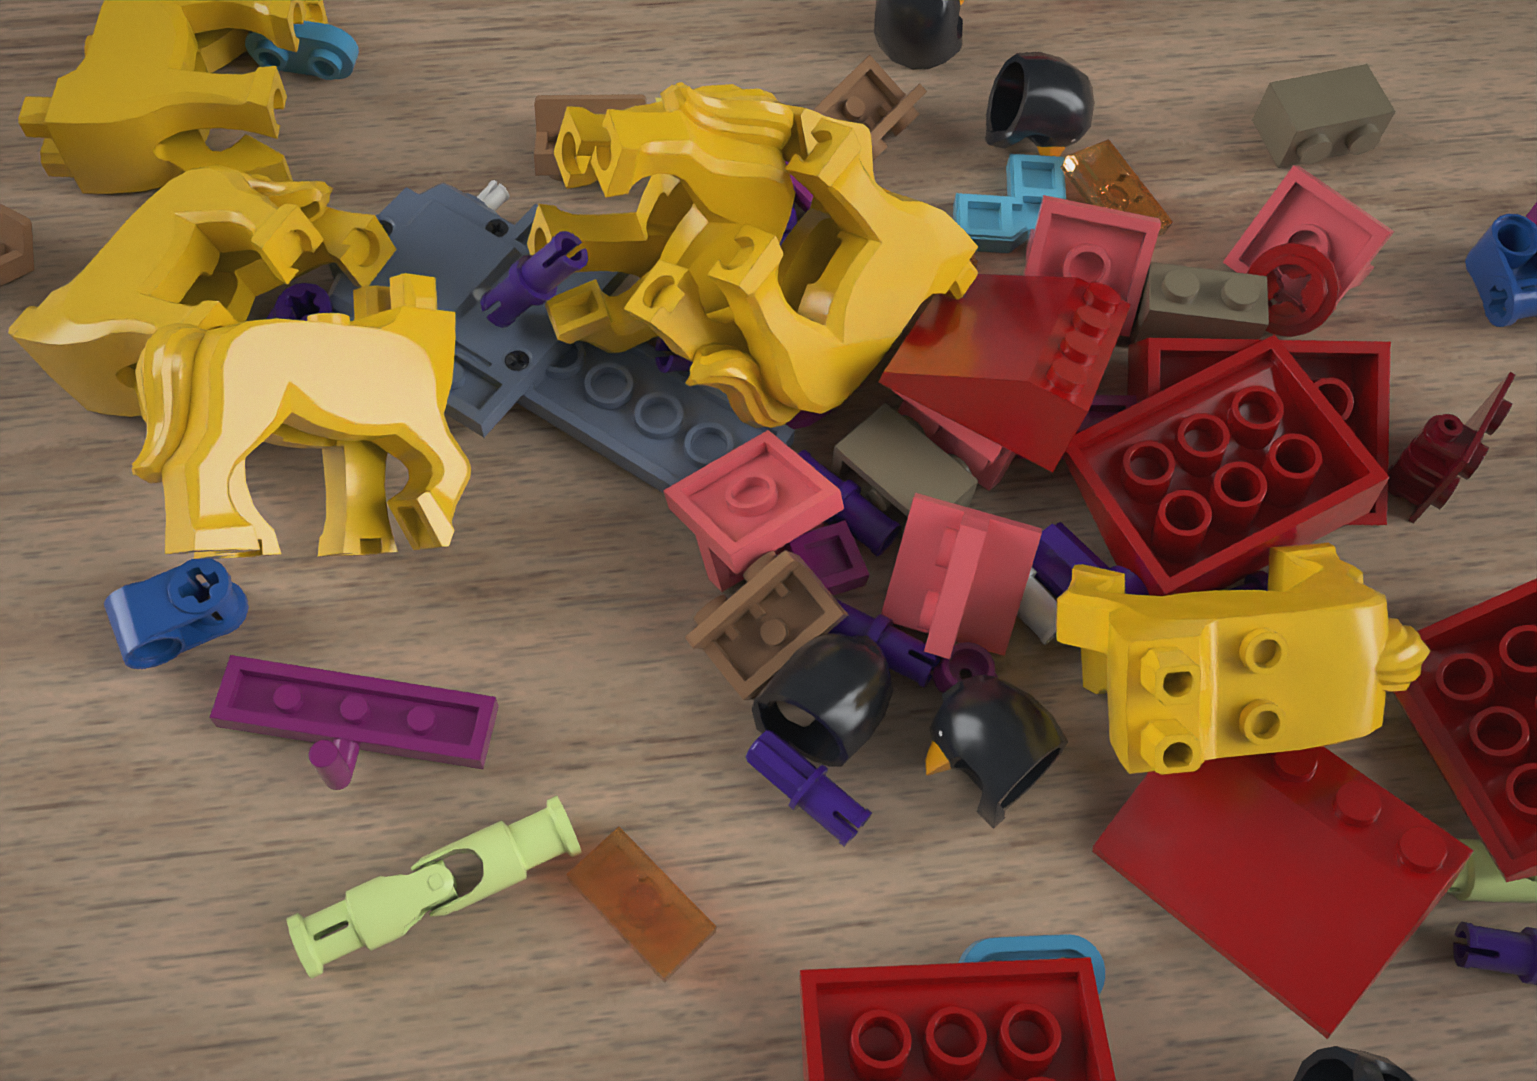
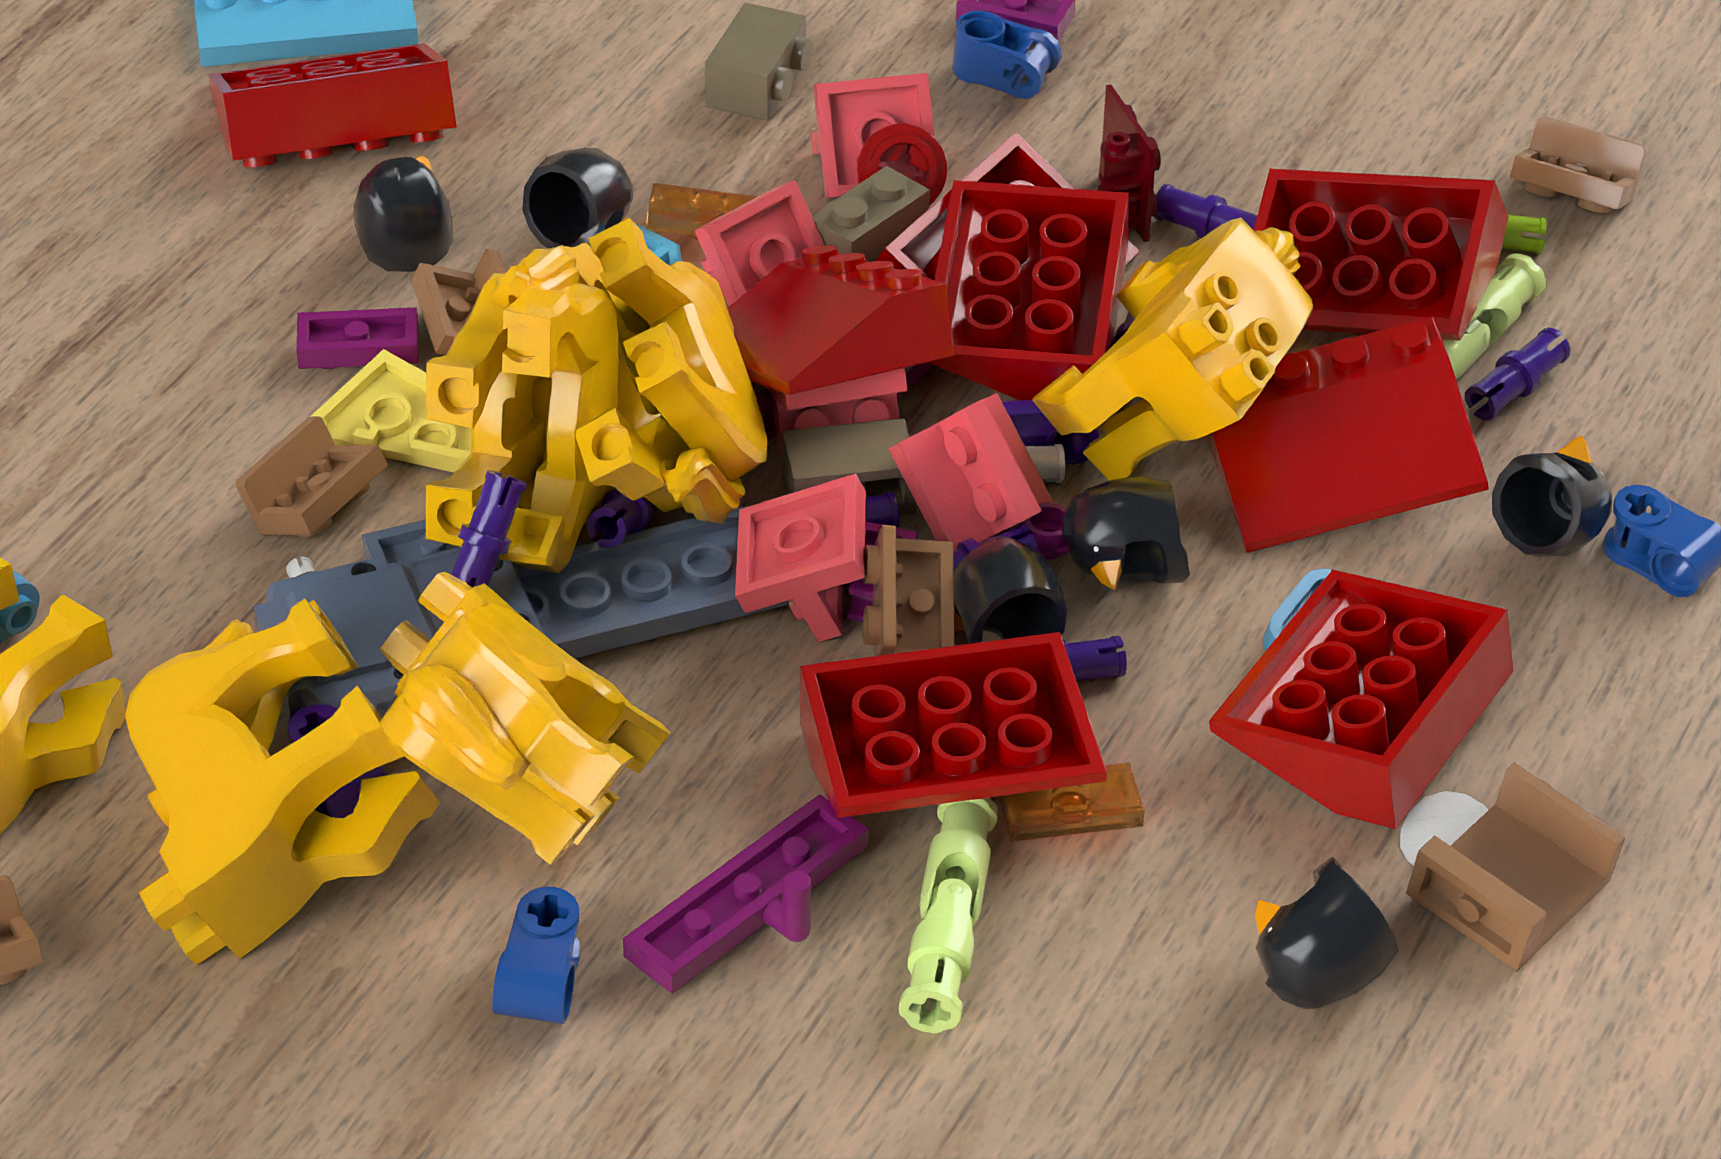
camera: 50 degrees left, 20 degrees down
(615, 762) = (947, 725): none -> red slope
(773, 66) = (355, 337): none -> magenta plate
(1477, 549) = (1196, 211): none -> dark purple pin

